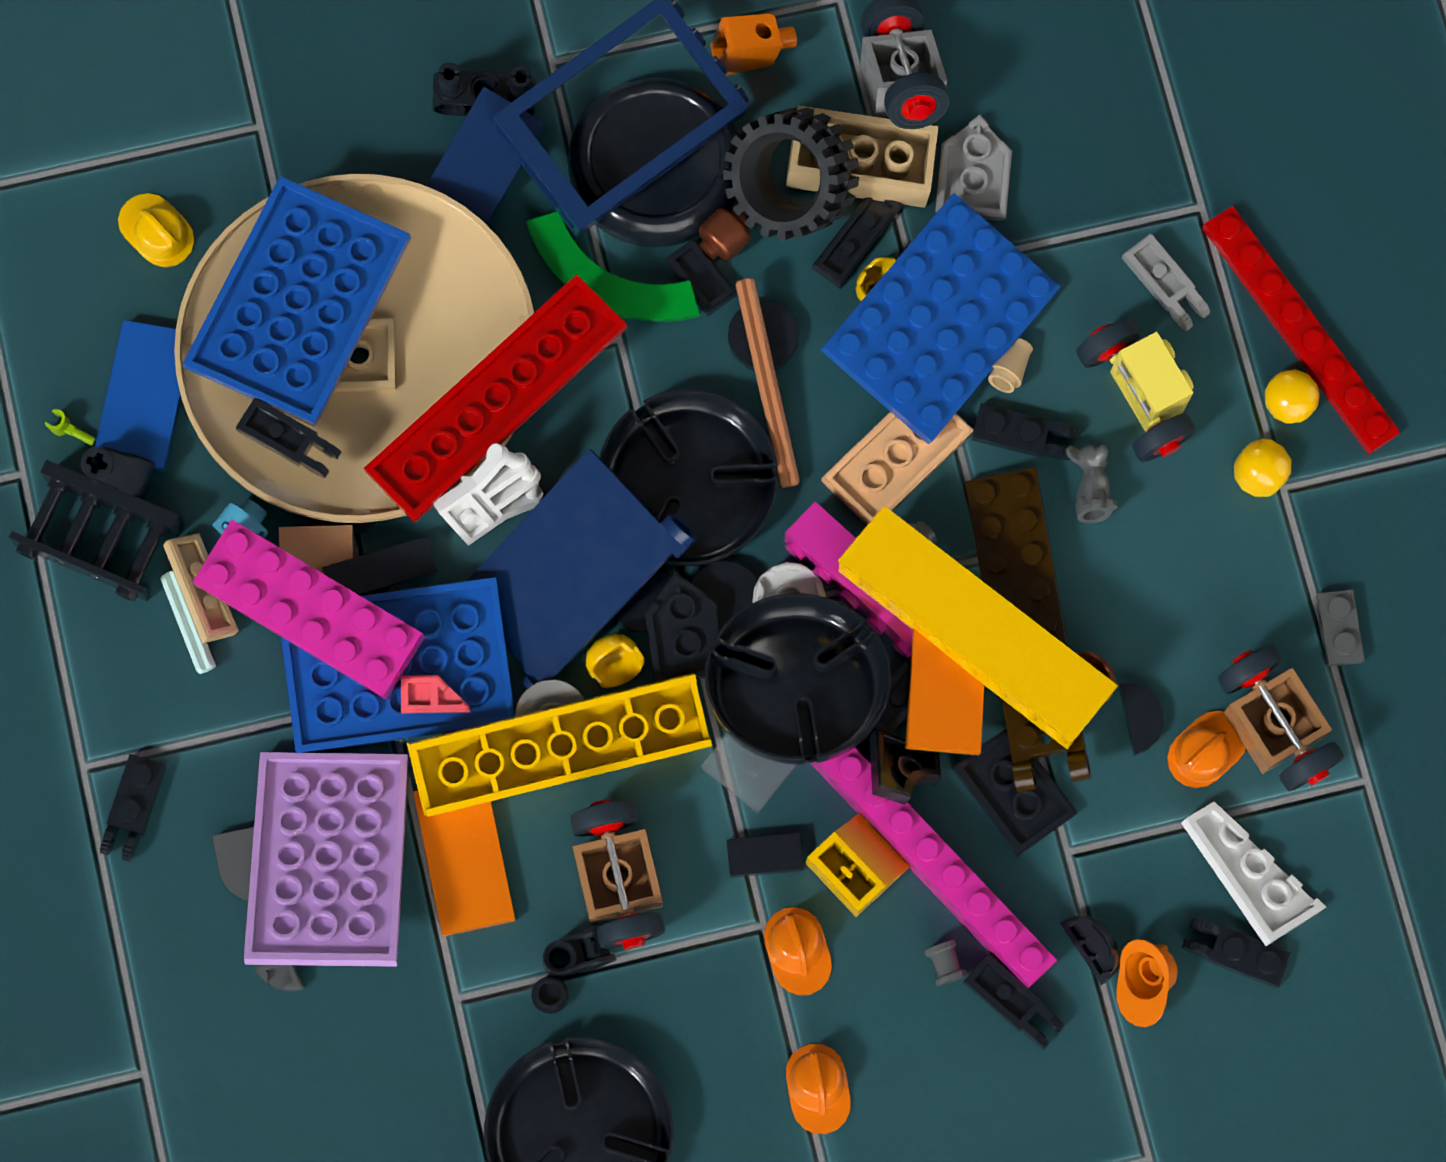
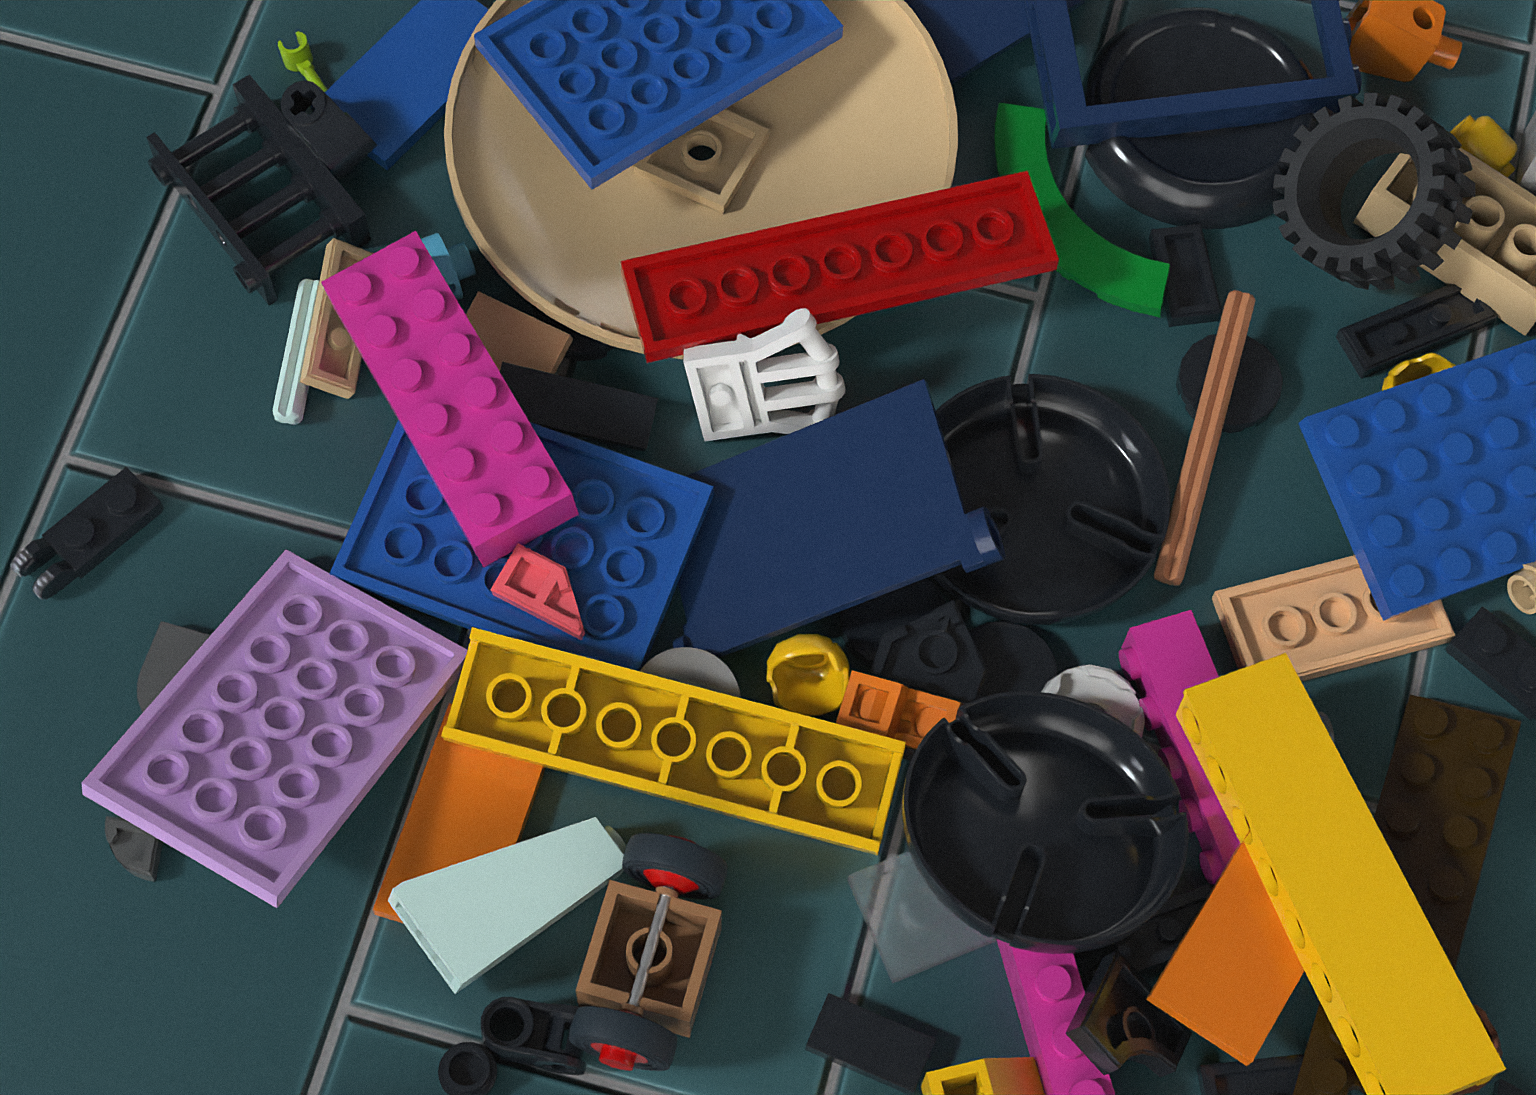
camera: 30 degrees right, 10 degrees down
(285, 436) = (547, 180): black hinge -> none
(515, 893) = (501, 900): none -> light aqua slope
(677, 656) = (892, 709): none -> orange slope
(724, 234) = (1244, 234): copper head -> none
(840, 94) = (1487, 142): none -> yellow head

